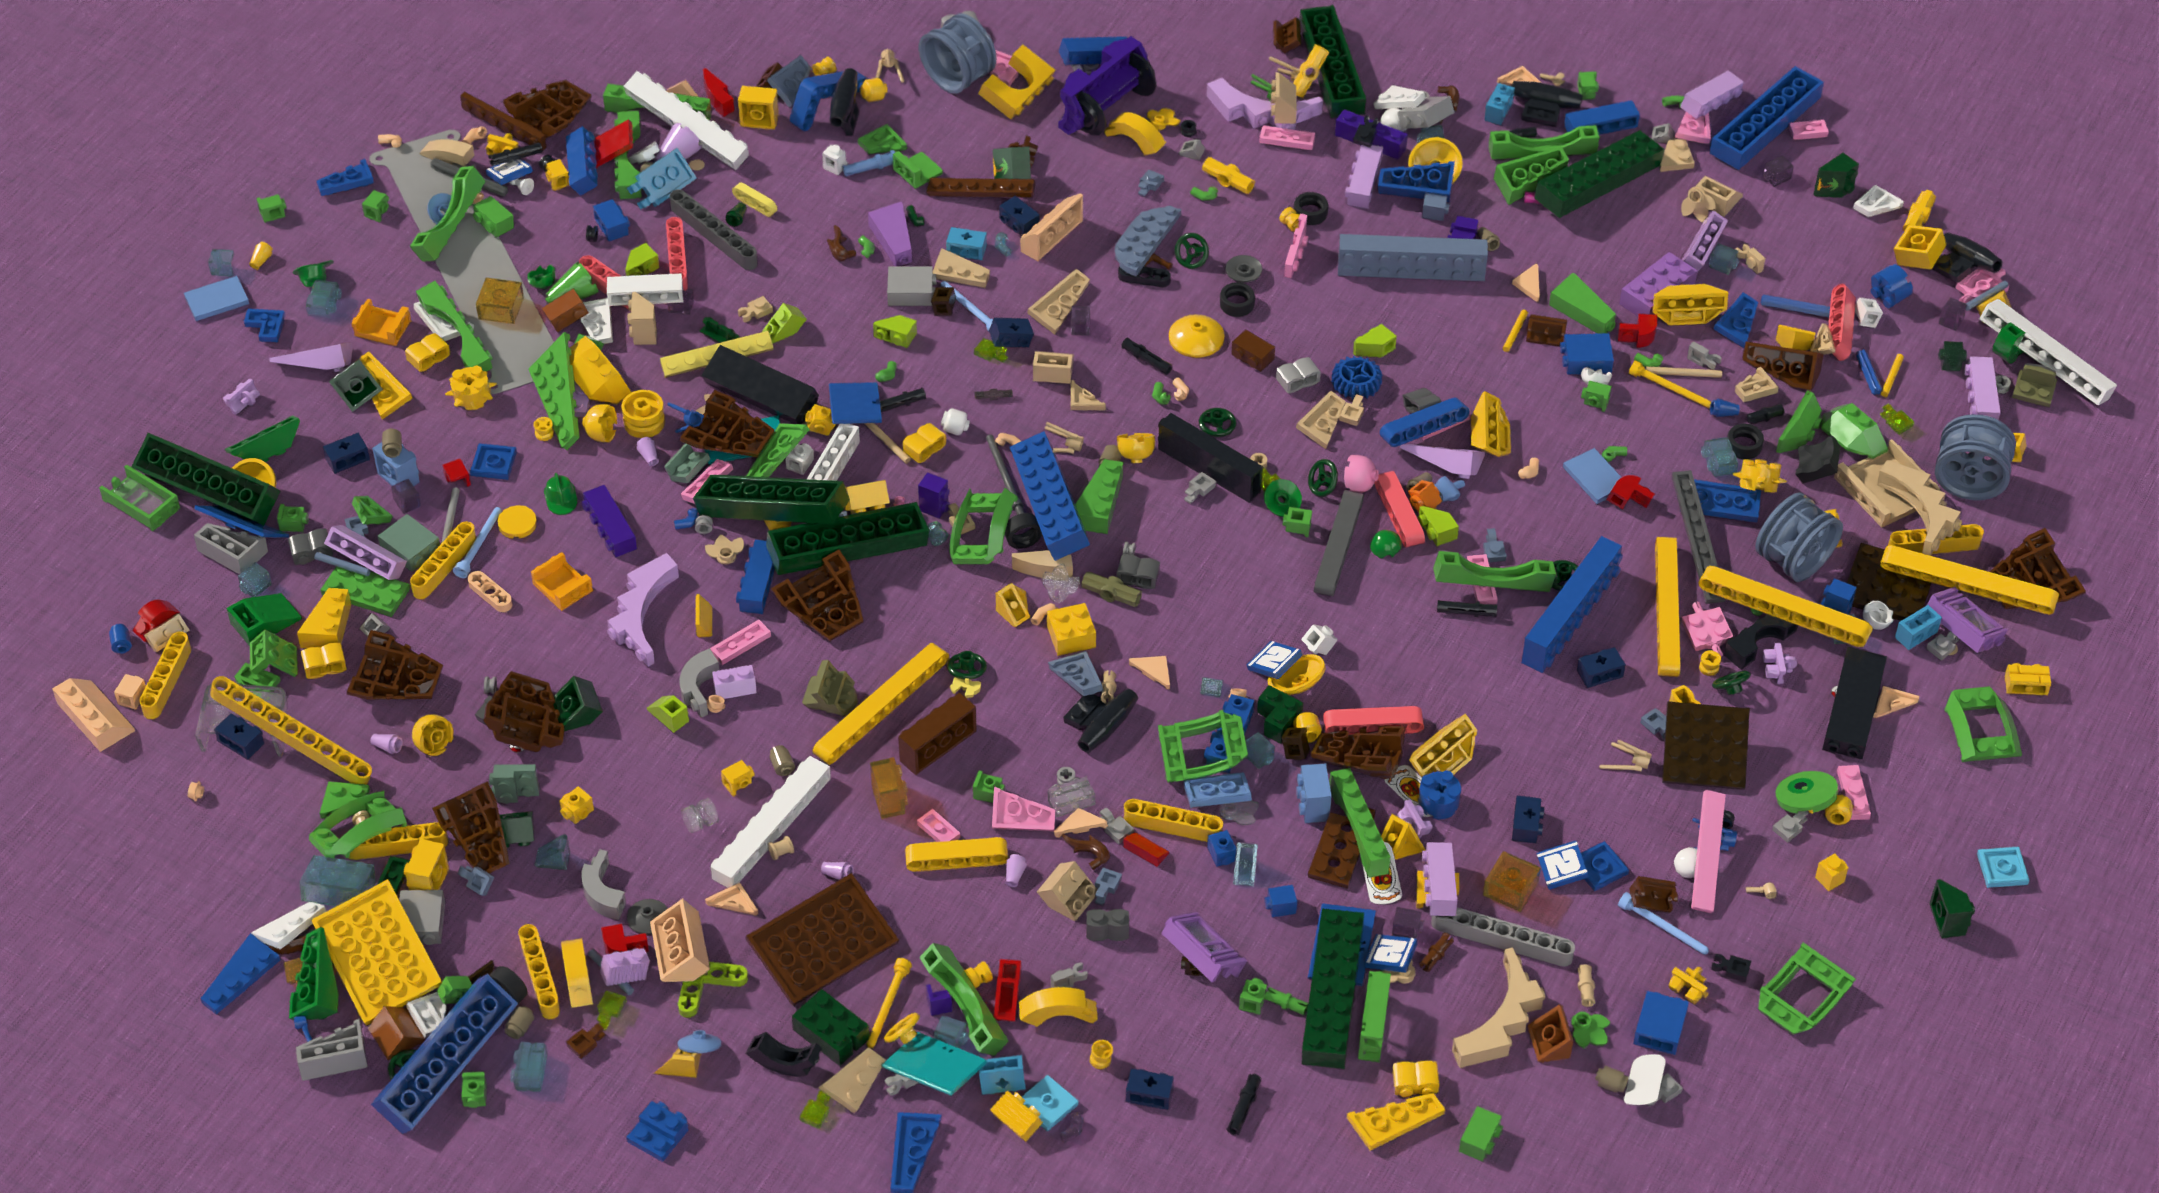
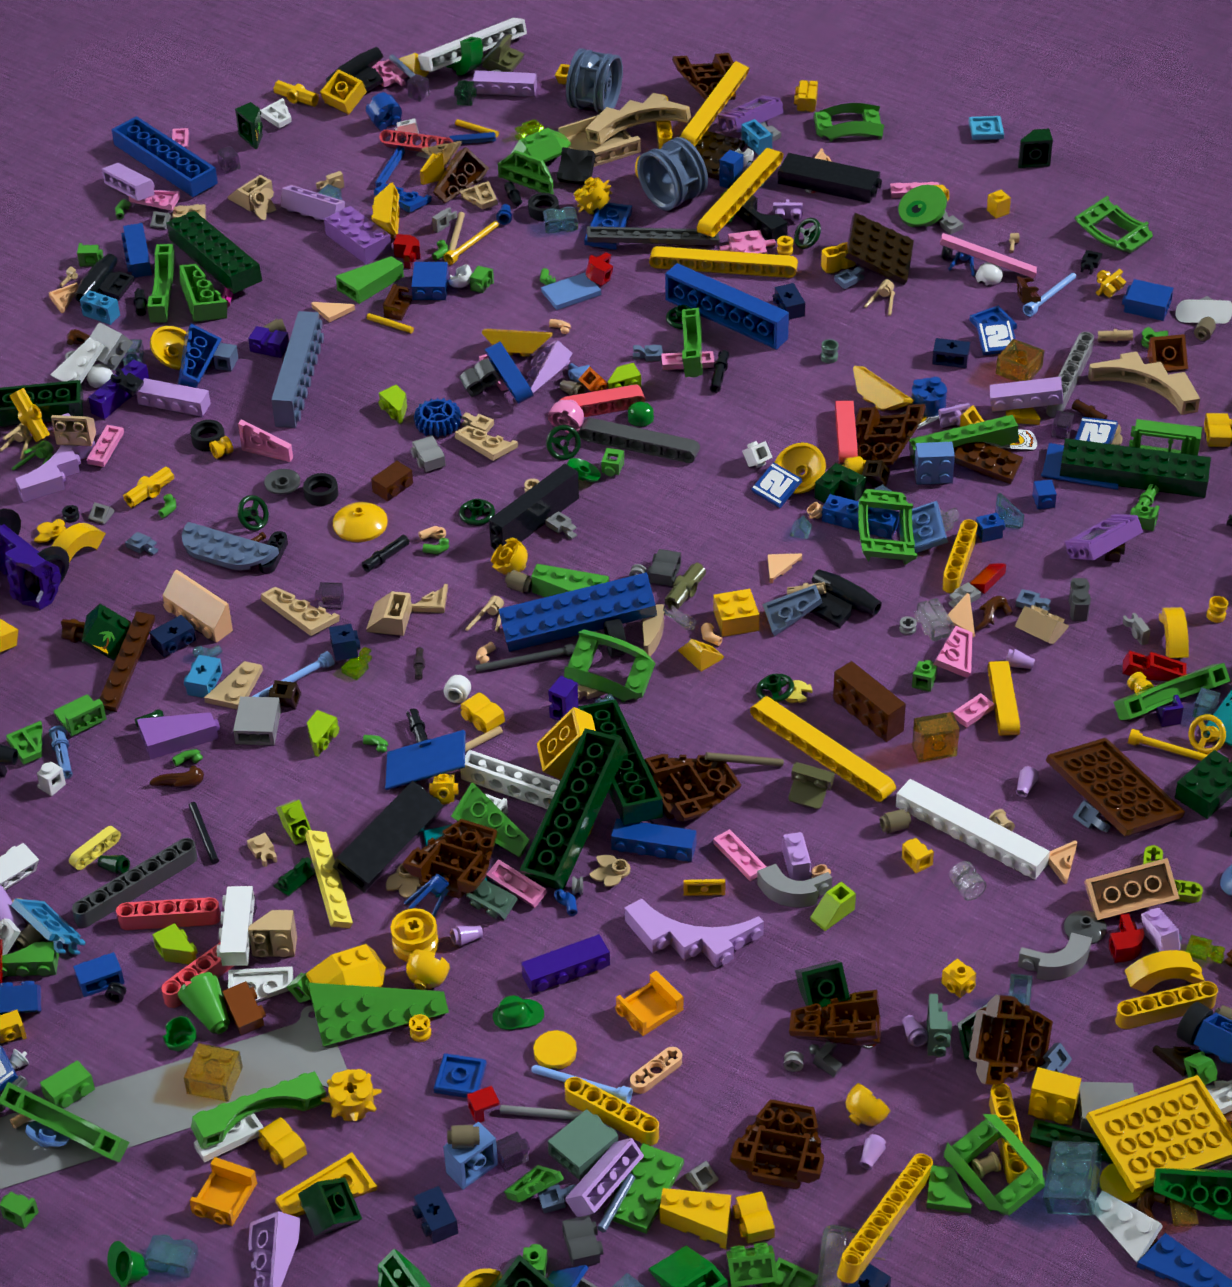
camera: 85 degrees left, 5 degrees down
(777, 268) = (203, 833): none -> black bar
(860, 639) = (744, 759): none -> dark tan bar
(1513, 705) = (829, 351): none -> sand green wheel

